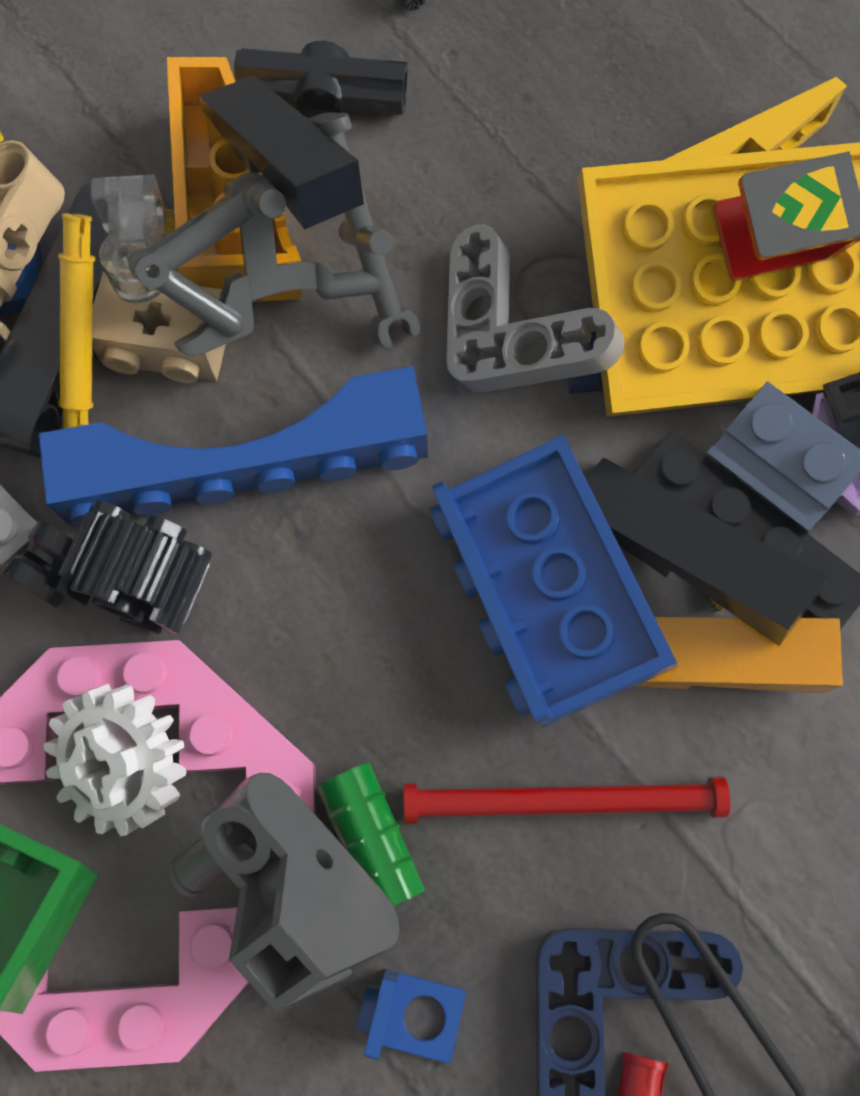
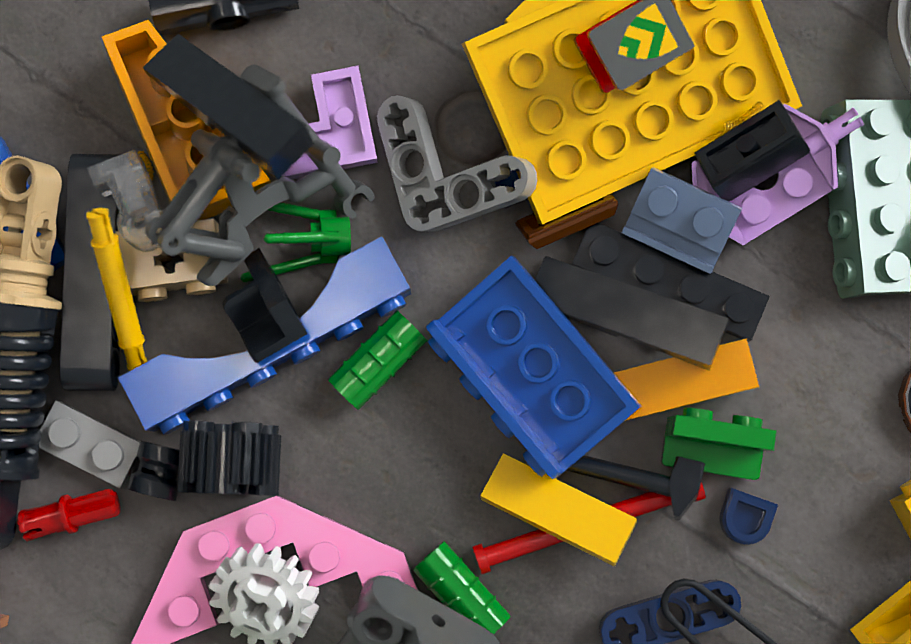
camera: 20 degrees left, 10 degrees up
(239, 406) = (263, 311): none -> black panel
(348, 354) = (328, 236): none -> green plant
(361, 513) = (377, 360): none -> green axle
(417, 226) = (342, 121): none -> lavender plate
(532, 770) = (559, 509): none -> yellow tile
(644, 423) = (581, 218): none -> reddish brown tile
(701, 788) = (681, 486): none -> black piece
(763, 748) = (724, 447): none -> green bracket
(775, 860) = (746, 517): none -> dark blue tile

